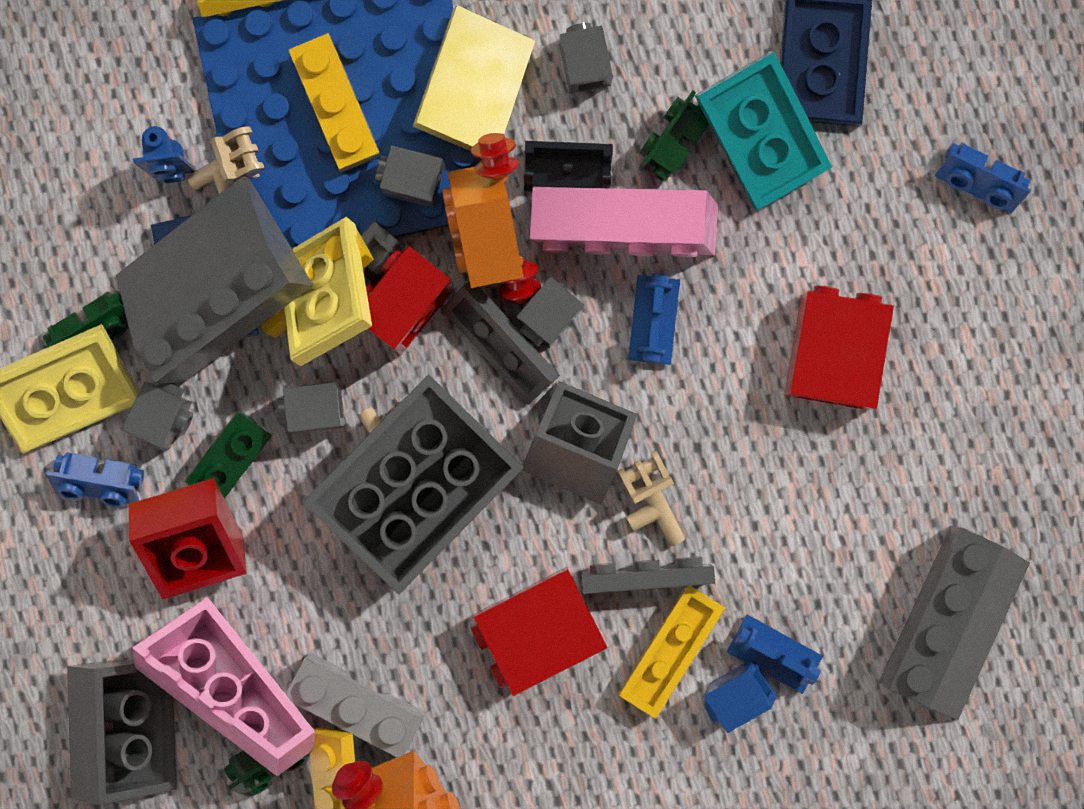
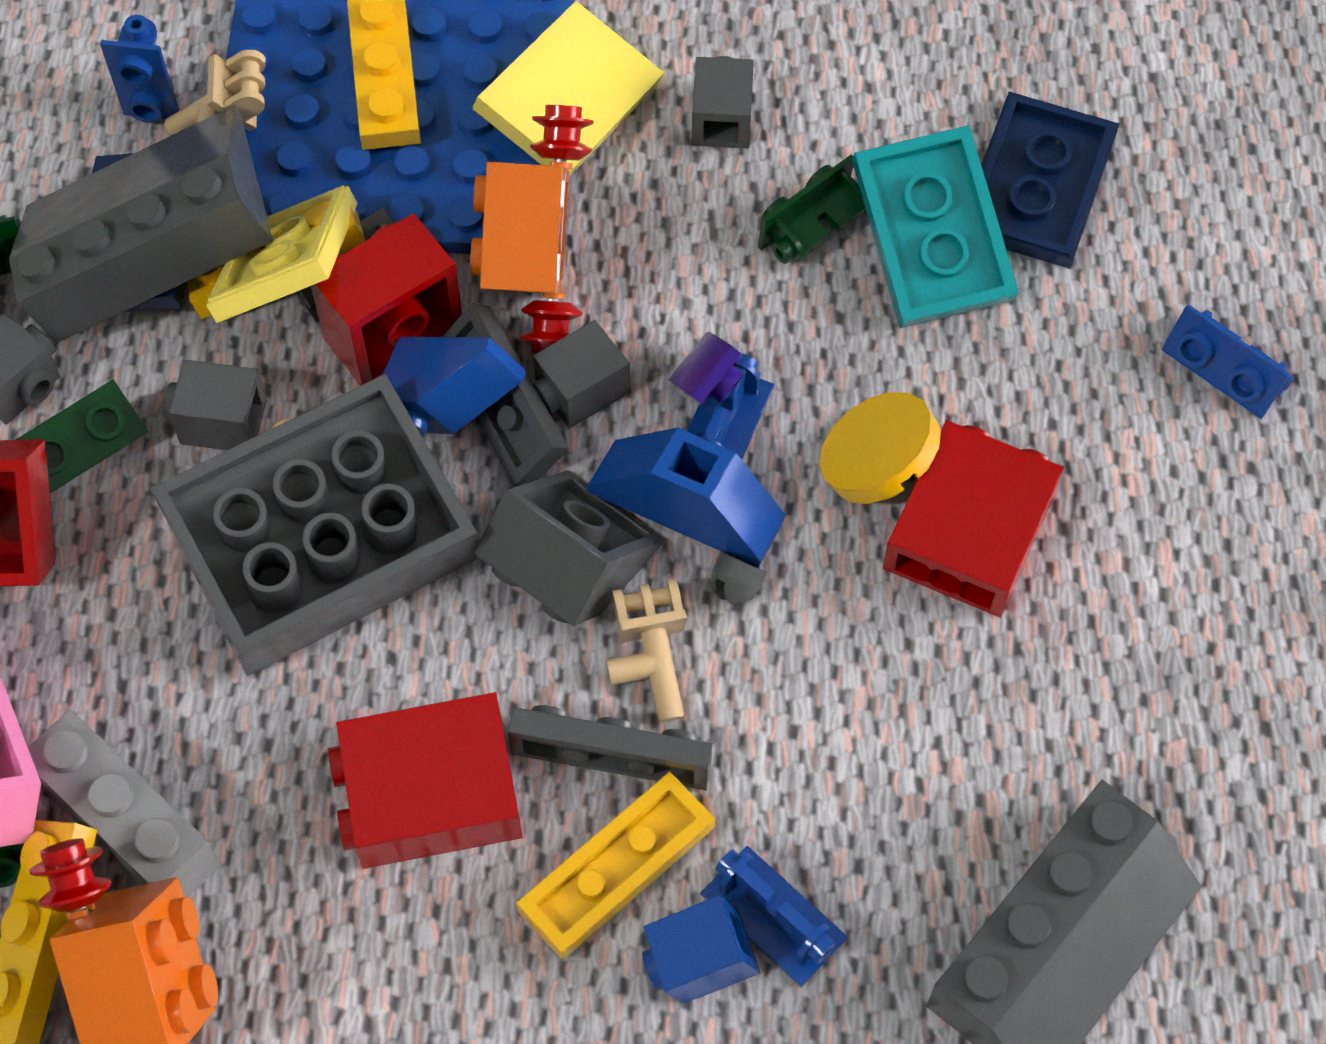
camera: 20 degrees right, 25 degrees down
(410, 176) = (445, 159): dark grey brick -> none
(460, 354) = (450, 379): none -> blue slope
(567, 165) = (661, 212): black hinge -> none
(624, 220) = (736, 284): bright pink wedge -> none
(637, 298) = (709, 370): none -> dark purple slope
(646, 384) = (691, 490): none -> blue slope
(693, 432) = (735, 579): none -> dark grey hinge
(766, 318) = (879, 447): none -> yellow tile

